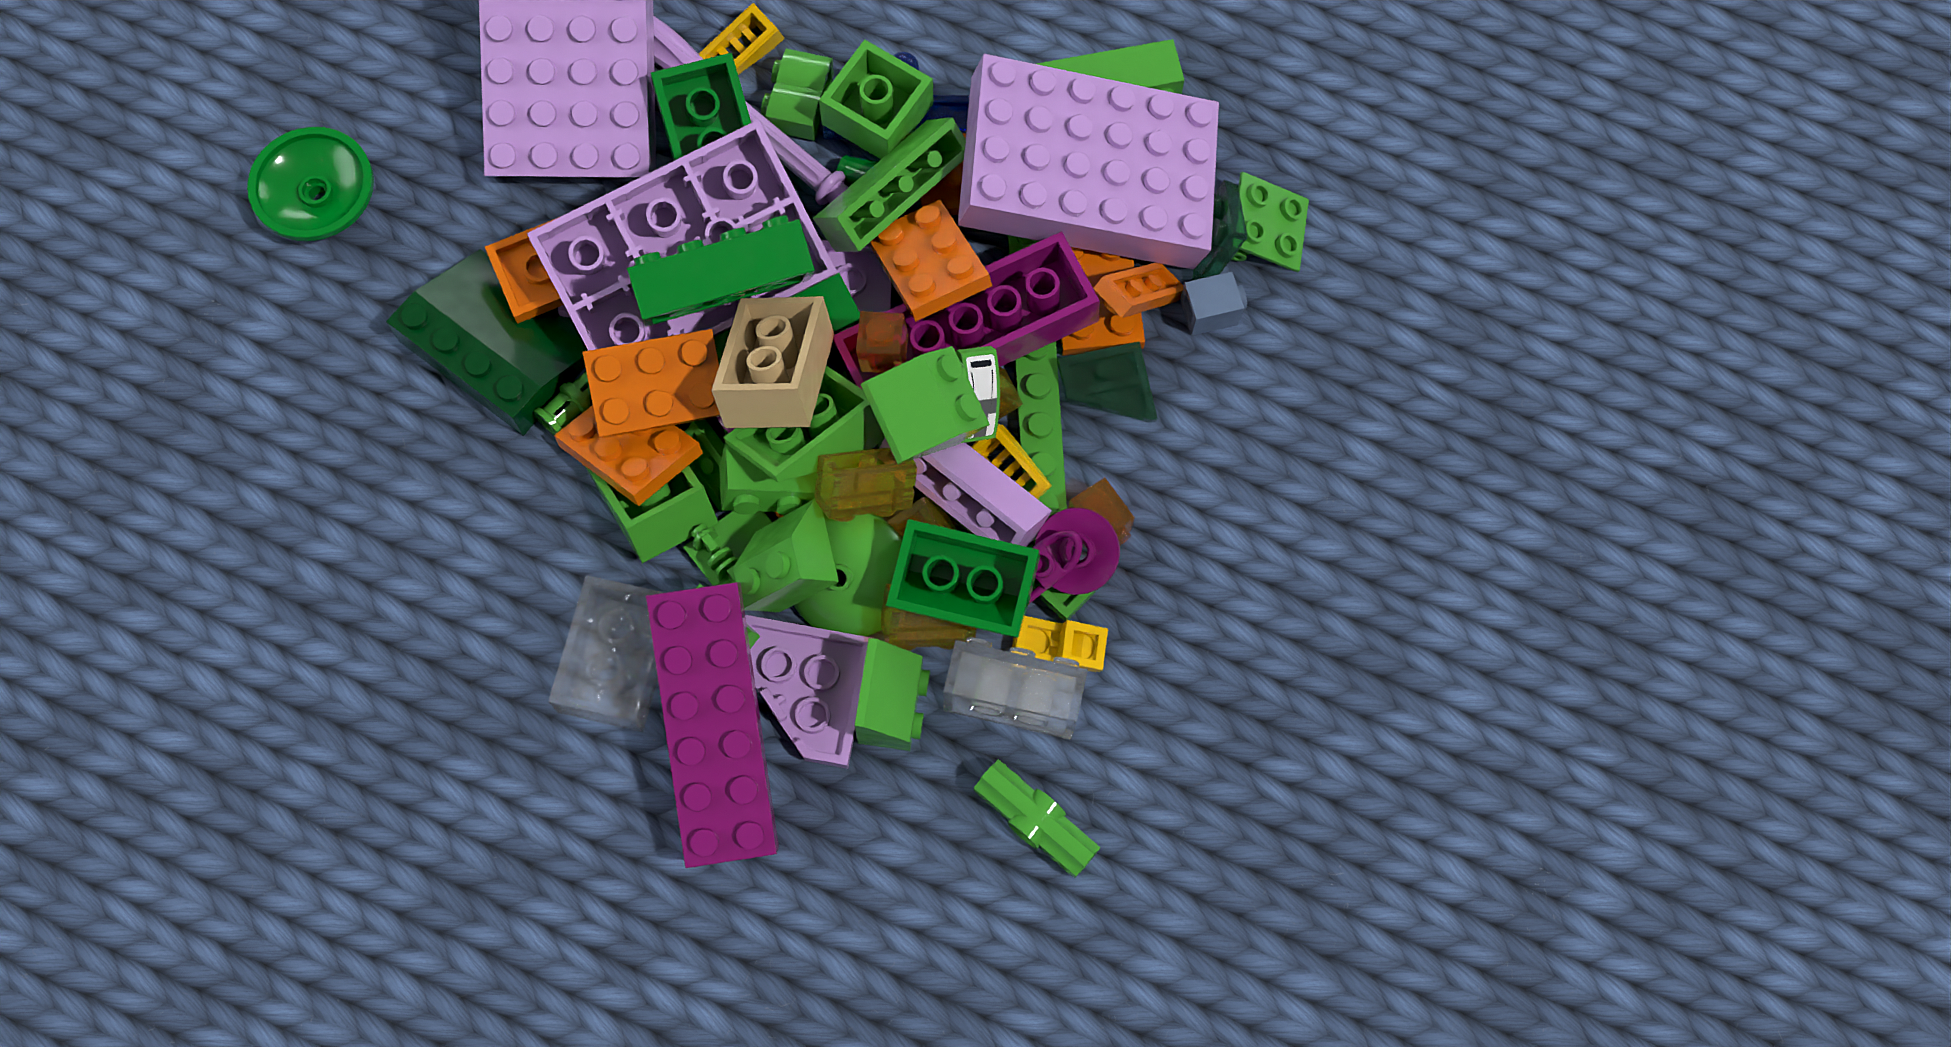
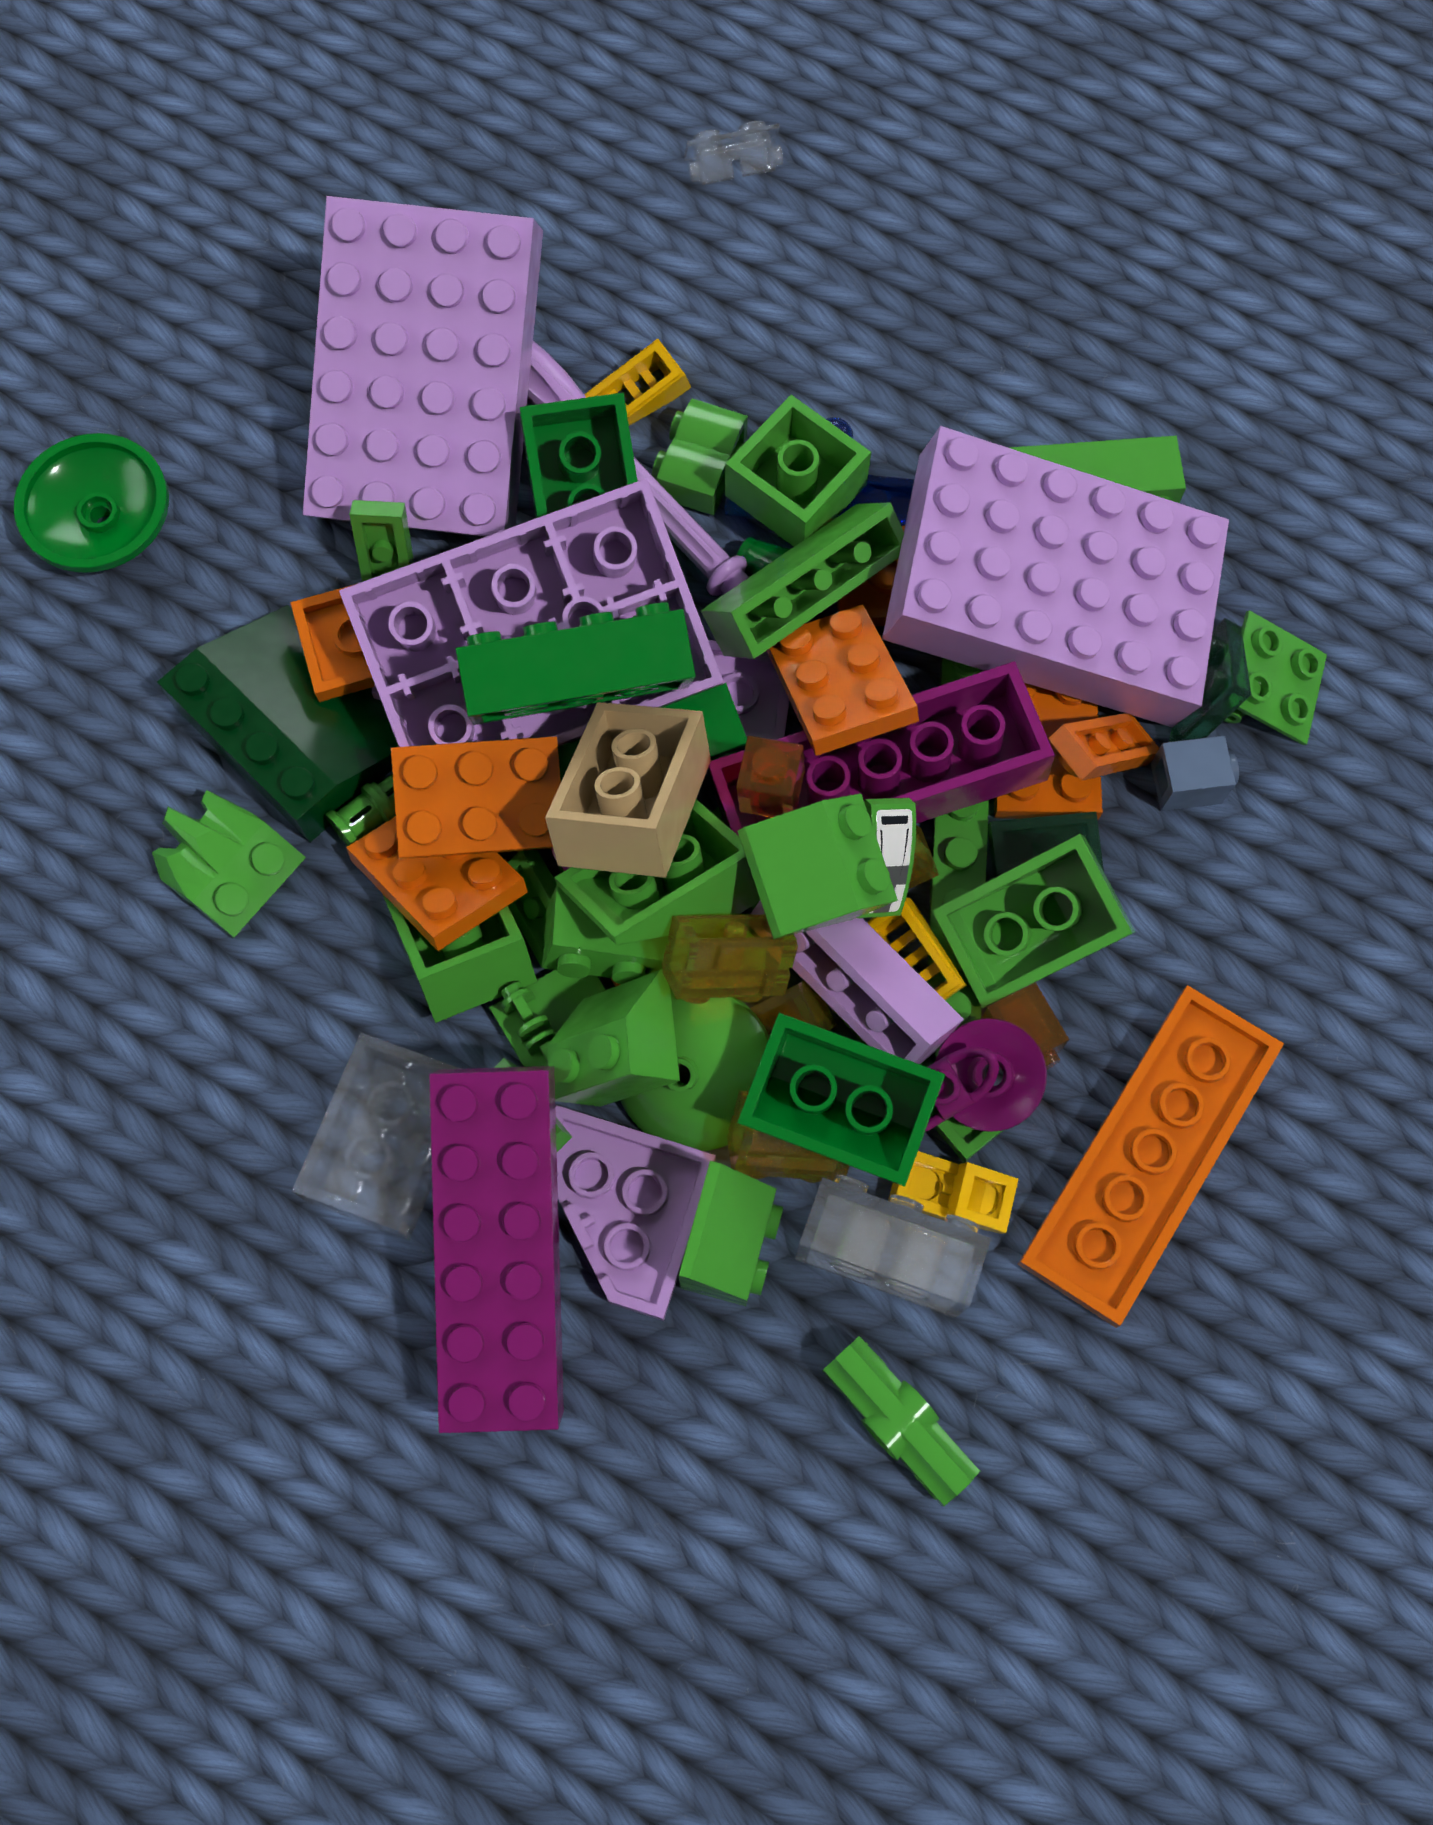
camera: 10 degrees right, 0 degrees up
(458, 457) = (225, 861): none -> bright green plate
(550, 188) = (380, 537): none -> bright green plate
(1099, 430) = (1033, 920): none -> bright green slope
(1207, 599) = (1150, 1156): none -> orange plate

